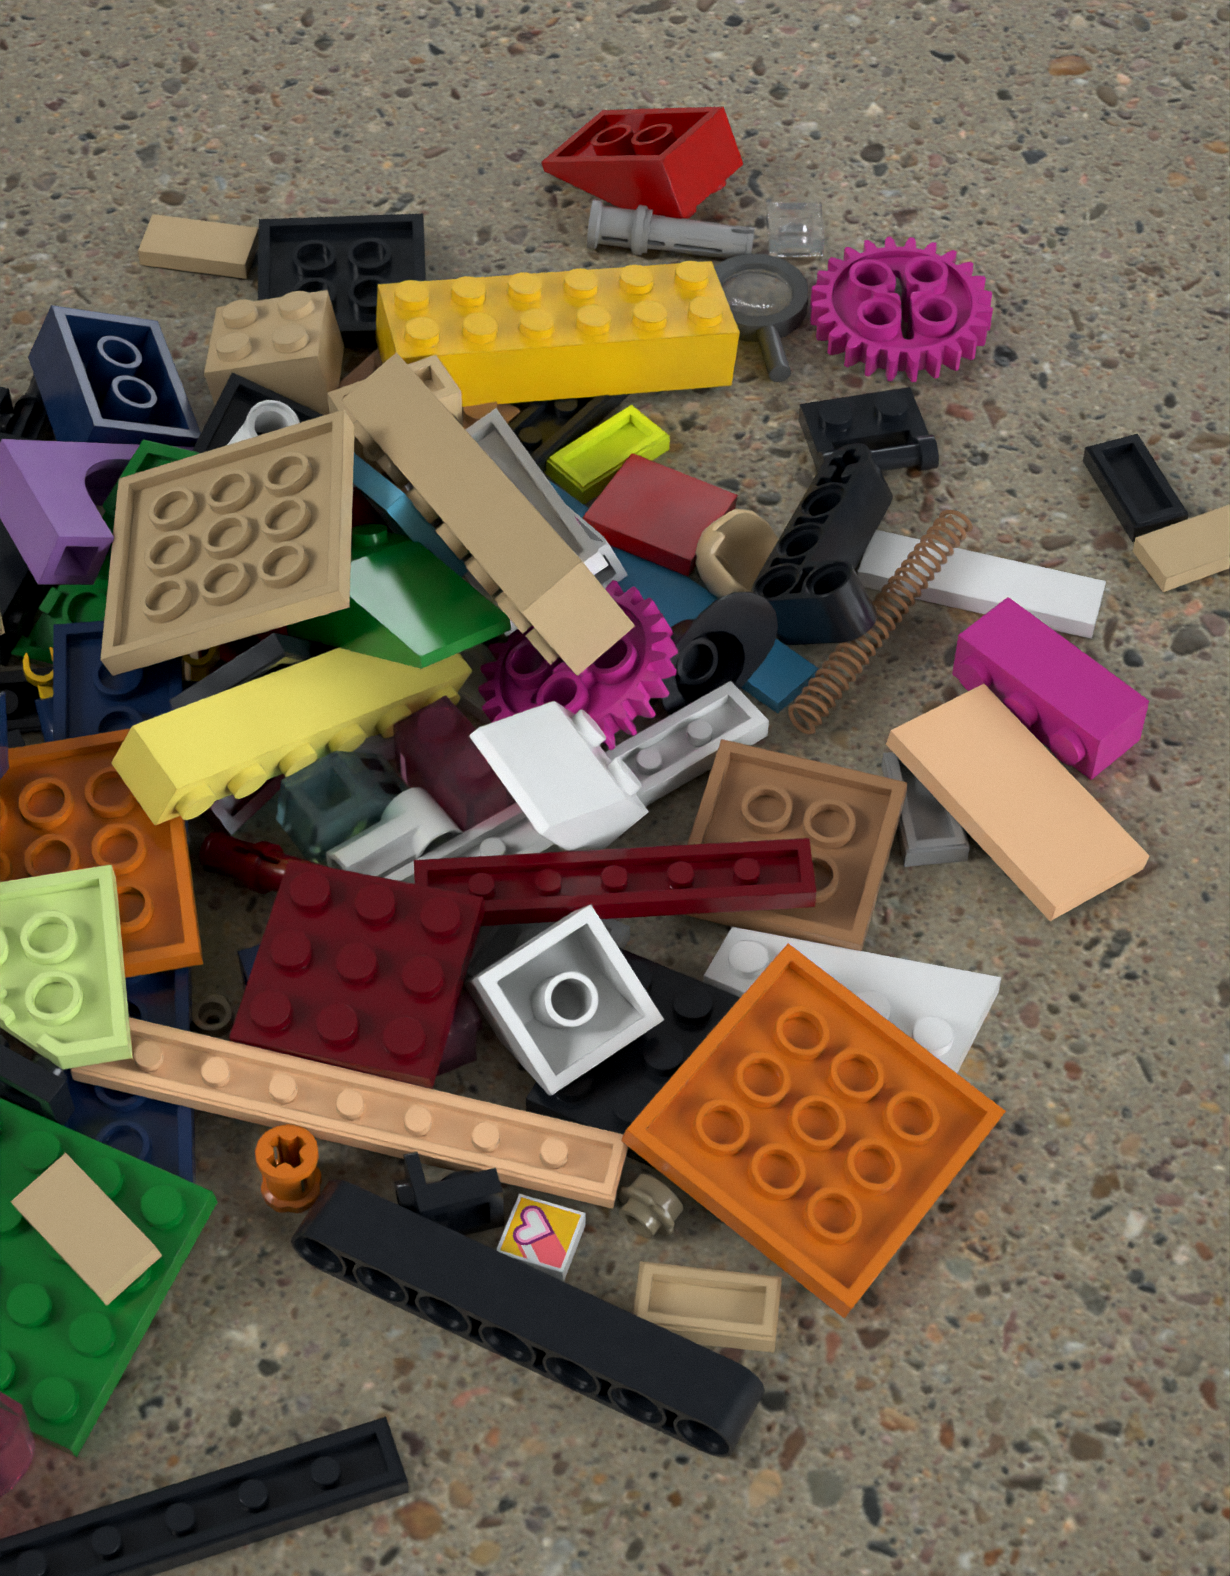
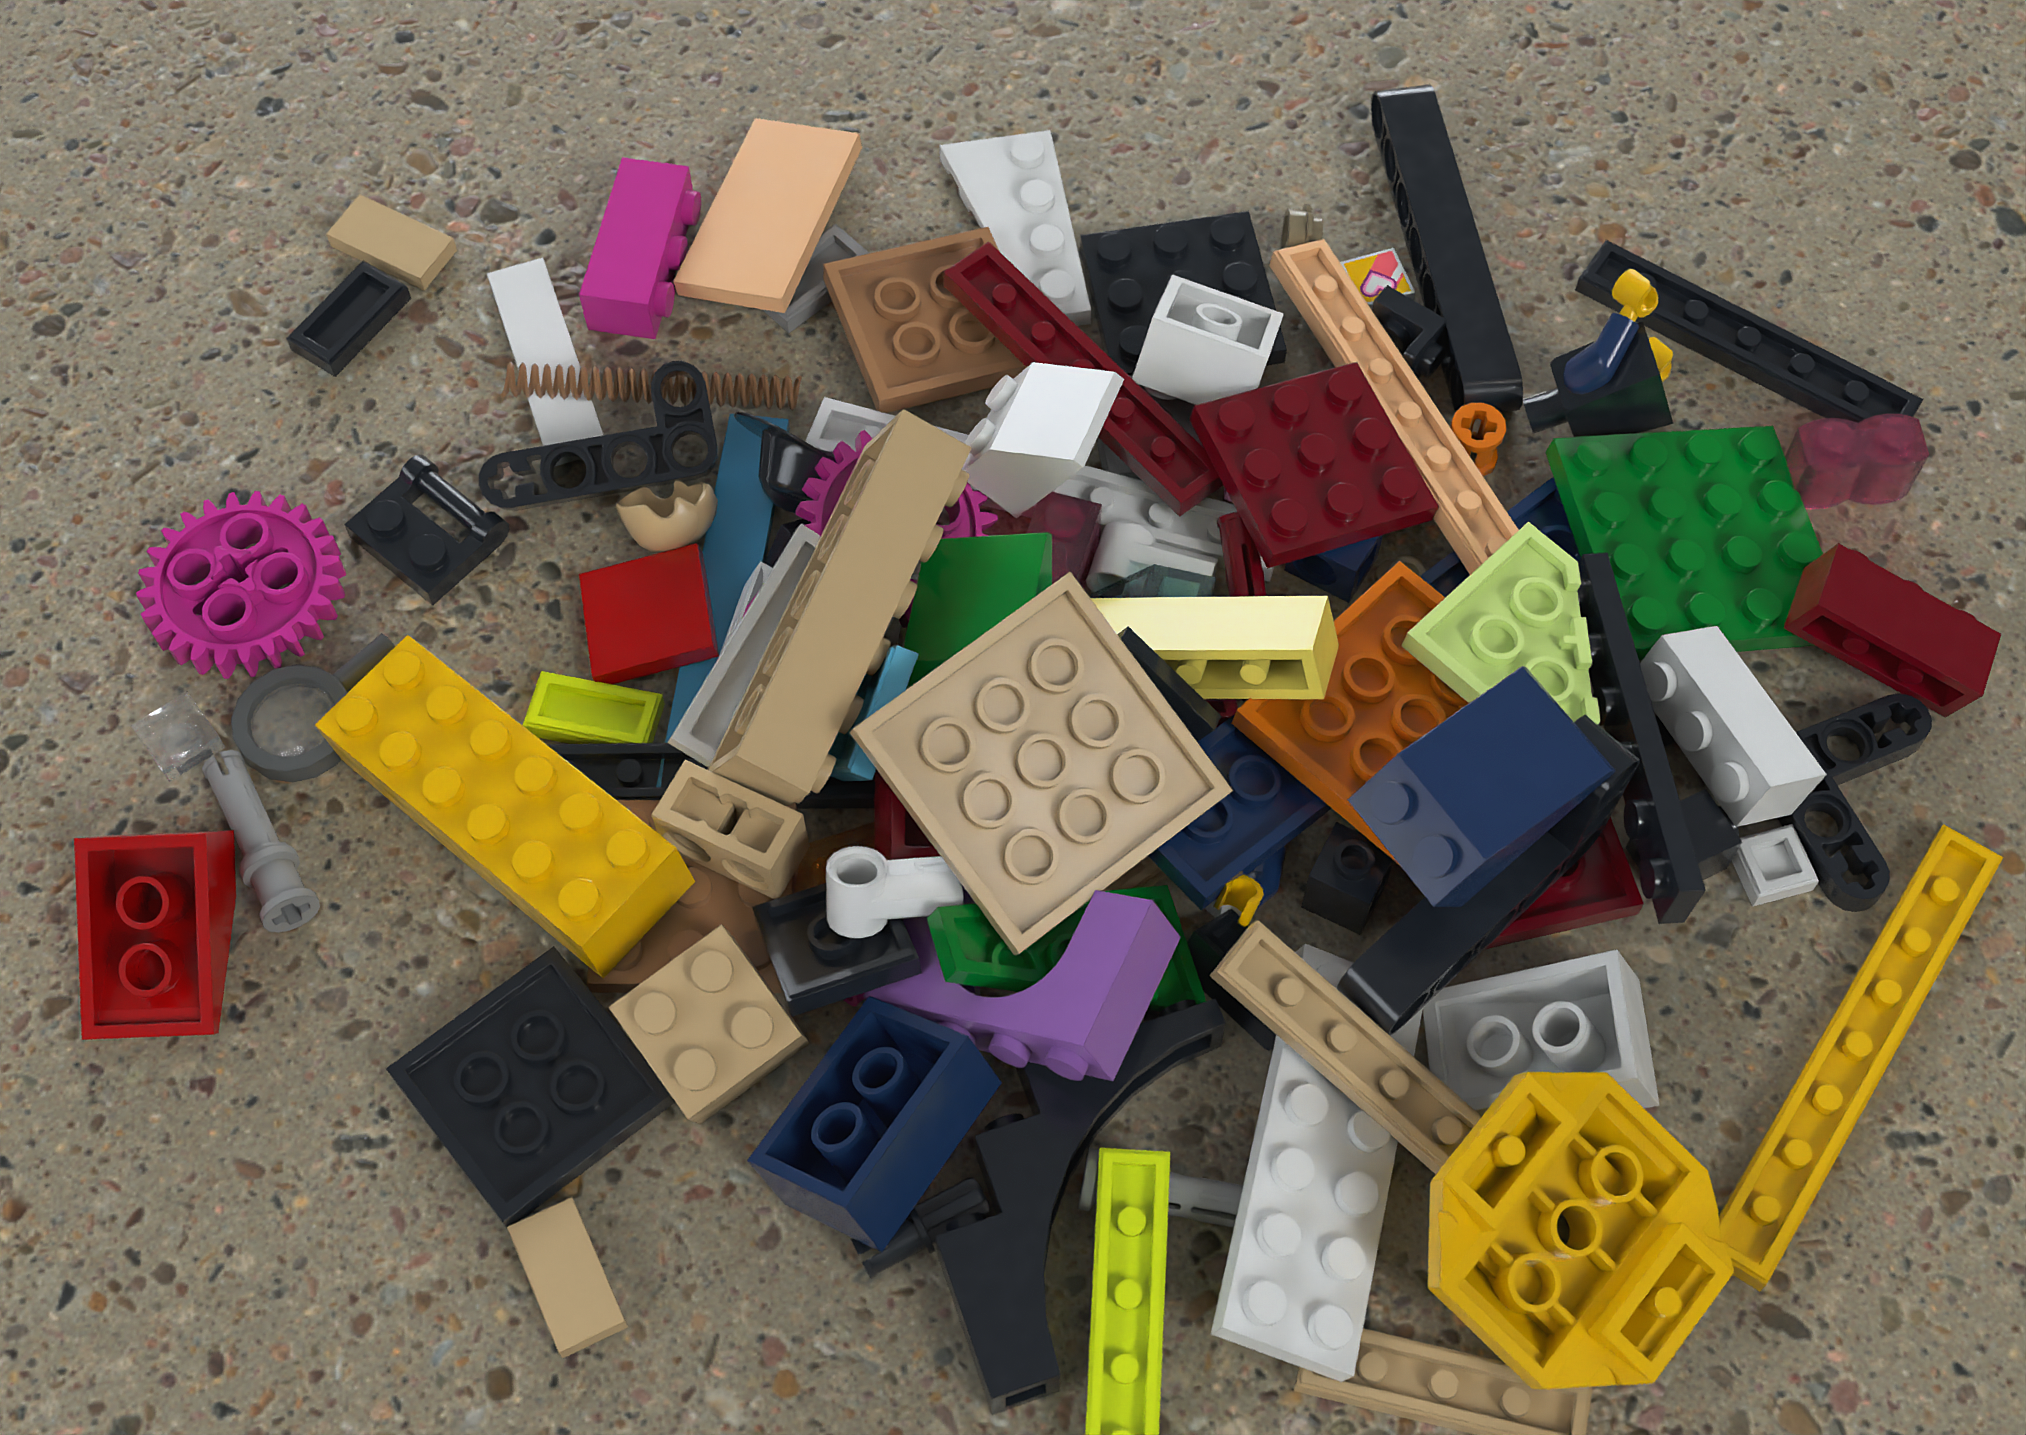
camera: 125 degrees left, 10 degrees up
(86, 1229) = (1656, 483): tan tile -> none
(211, 1293) = (1613, 381): none -> black torso
(710, 1305) = (1336, 171): tan tile -> none
(813, 1129) = (1168, 163): orange plate -> none

